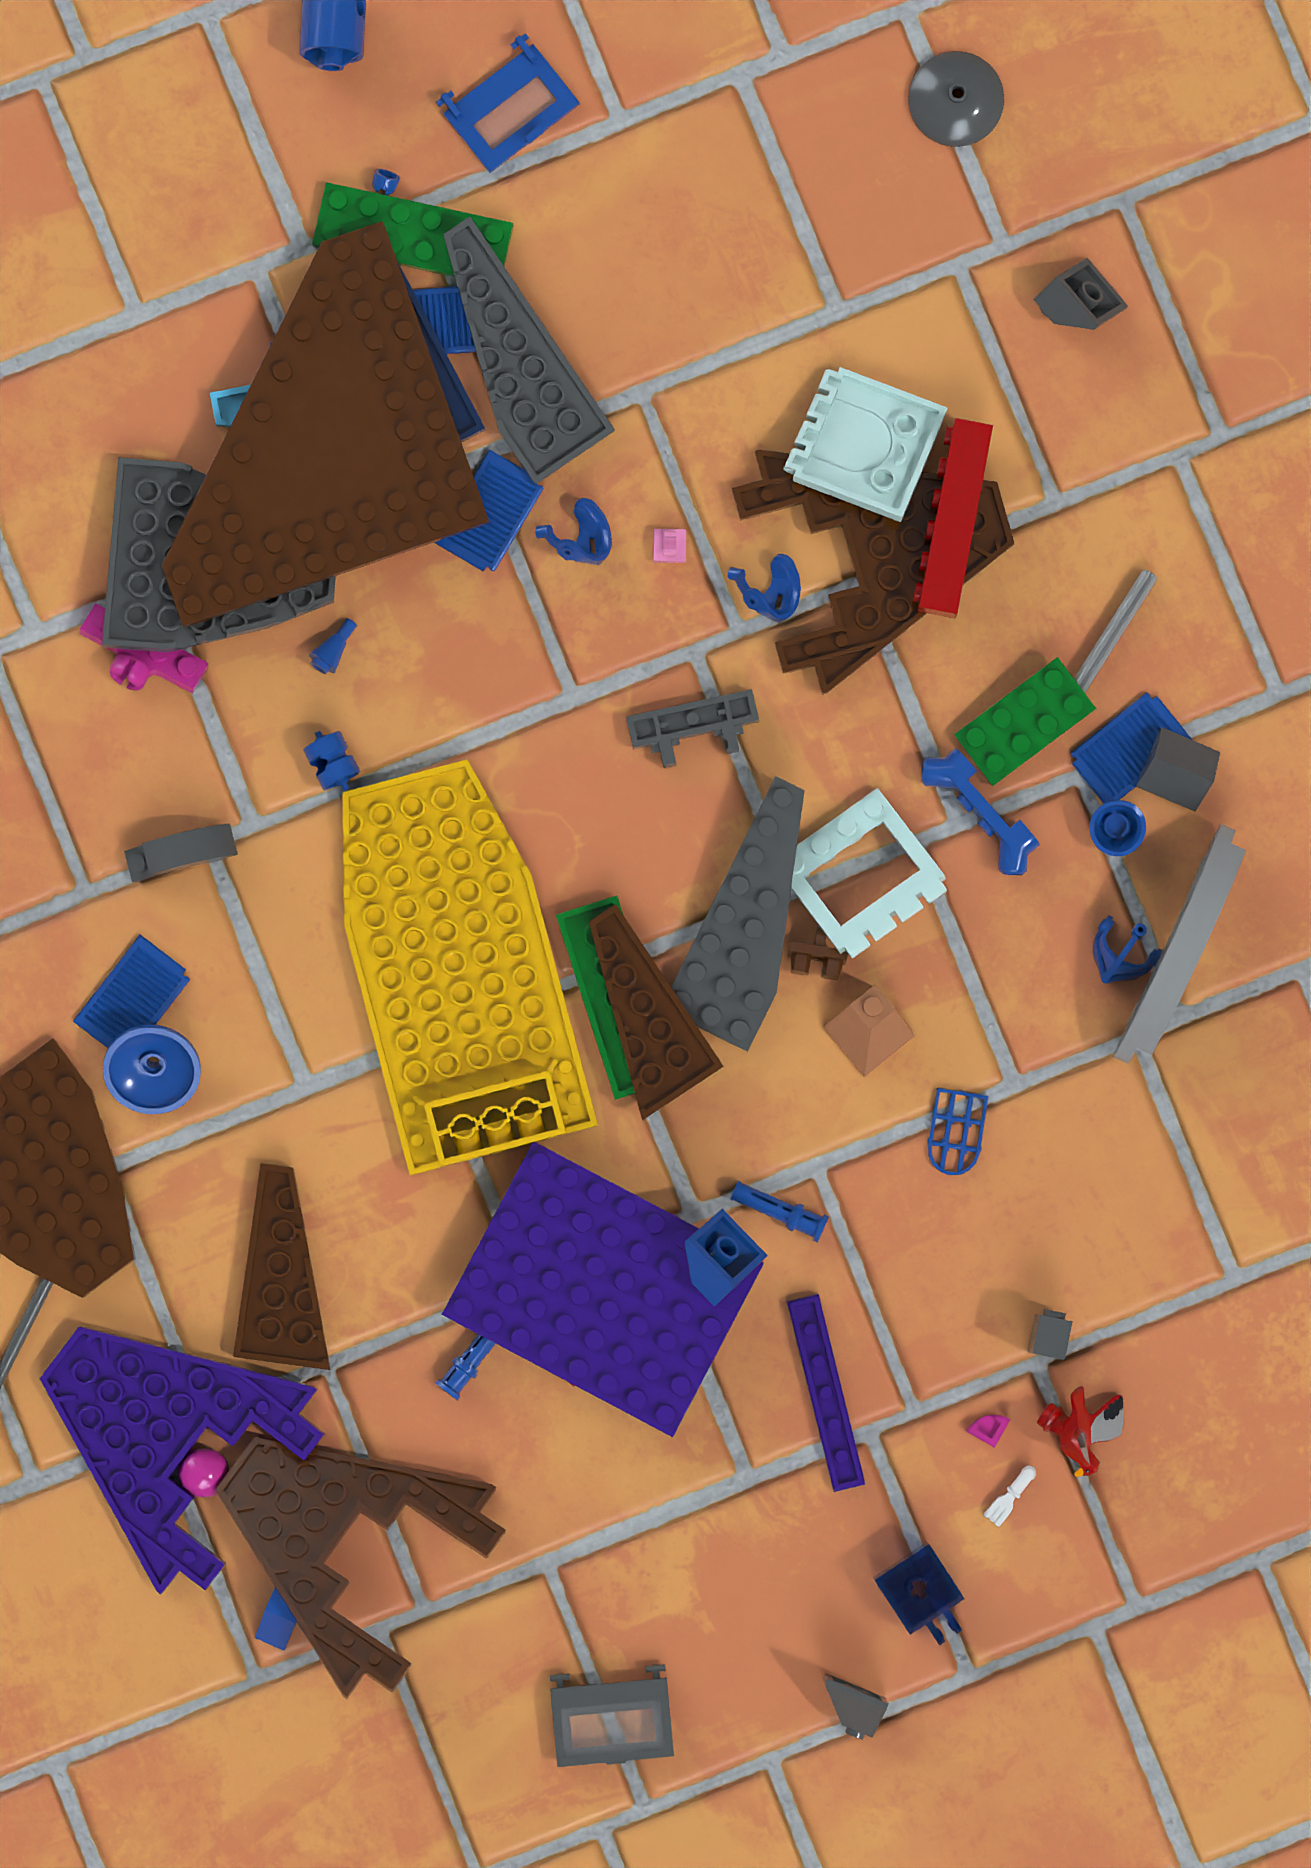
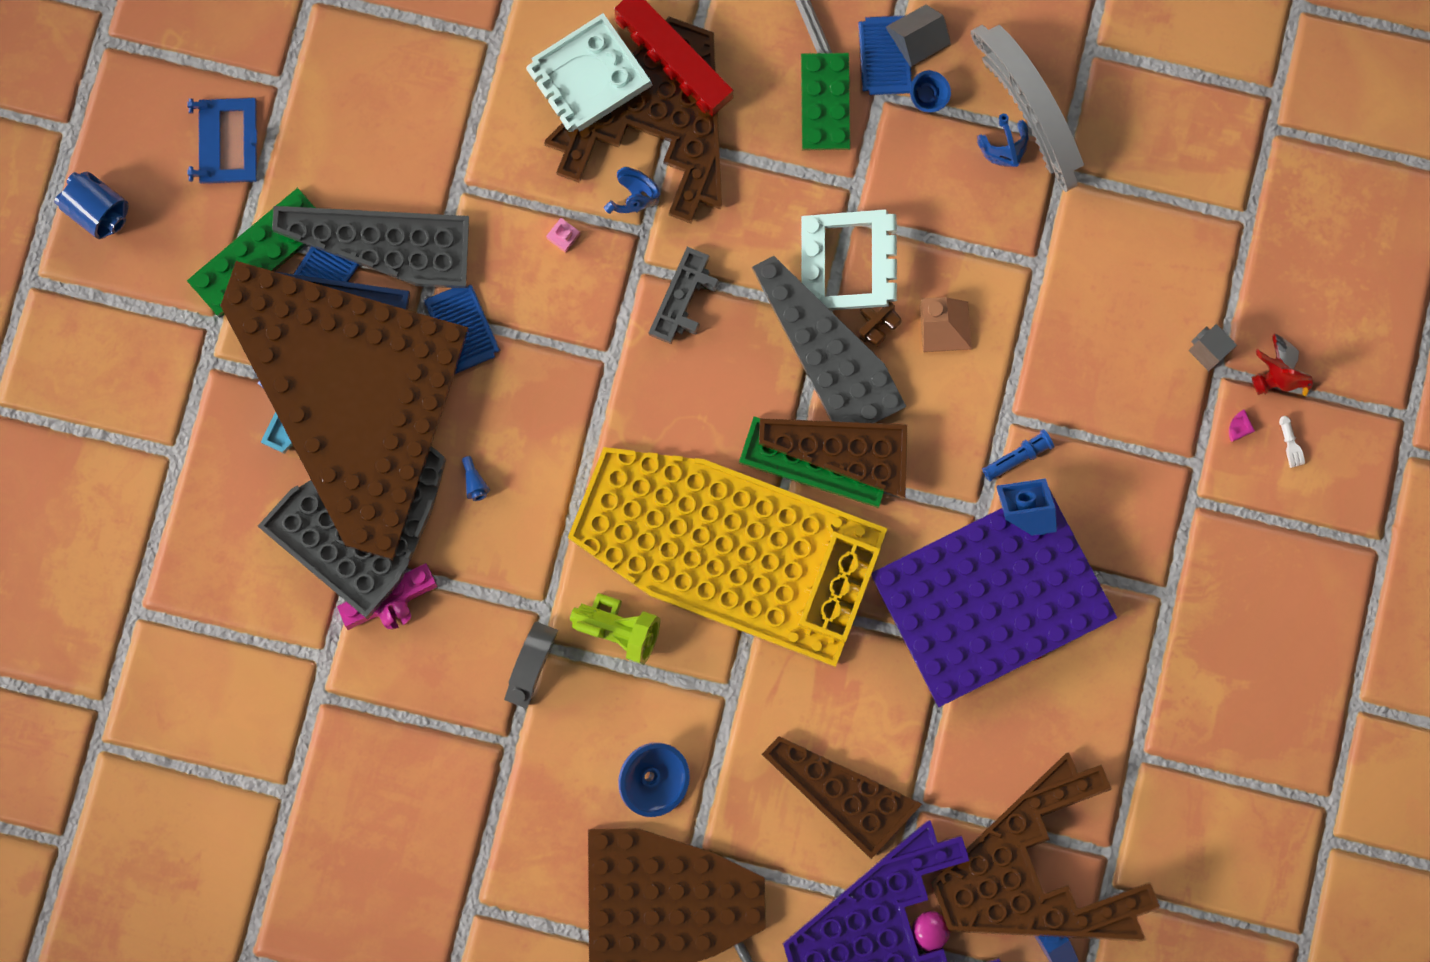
camera: 55 degrees left, 5 degrees down
(133, 993) = (596, 759): blue window -> none
(286, 937) = (633, 634): none -> lime piece
(330, 758) = (542, 529): blue wheel -> none
(385, 180) = (213, 244): blue hinge -> none
(465, 1366) = (979, 717): blue pin -> none
(592, 525) = (516, 271): blue helmet -> none
(611, 1720) = (1265, 784): piece -> none
(826, 1393) = (1150, 509): dark purple tile -> none
(855, 1706) = (1360, 627): dark grey slope -> none
(939, 1594) = (1323, 525): clear blue hinge -> none
(955, 773) = (826, 163): blue plate -> none
(967, 1123) = (1033, 316): blue window -> none

